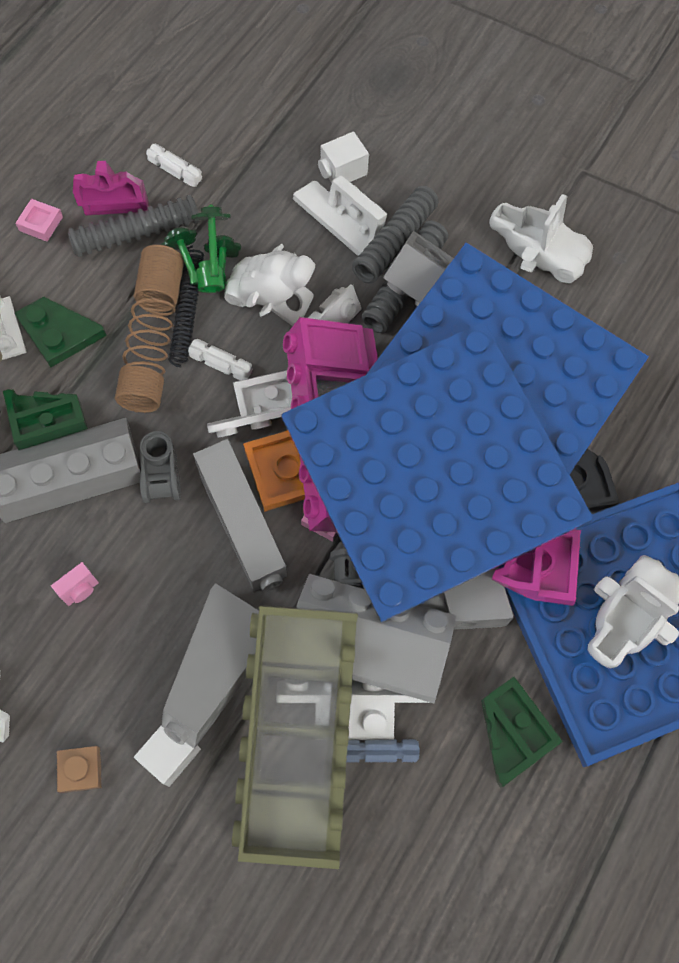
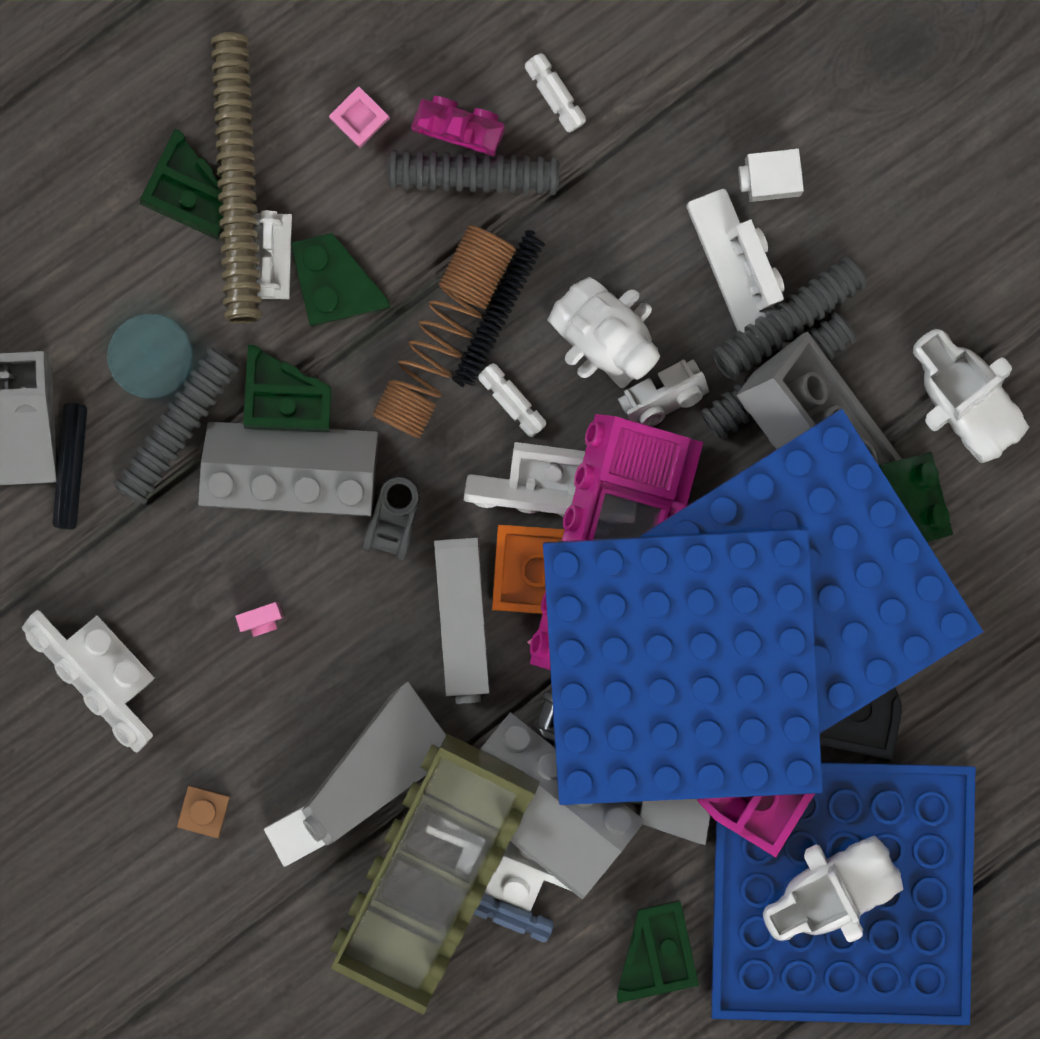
camera: 30 degrees right, 20 degrees up
(211, 273) = (543, 288): plant -> none

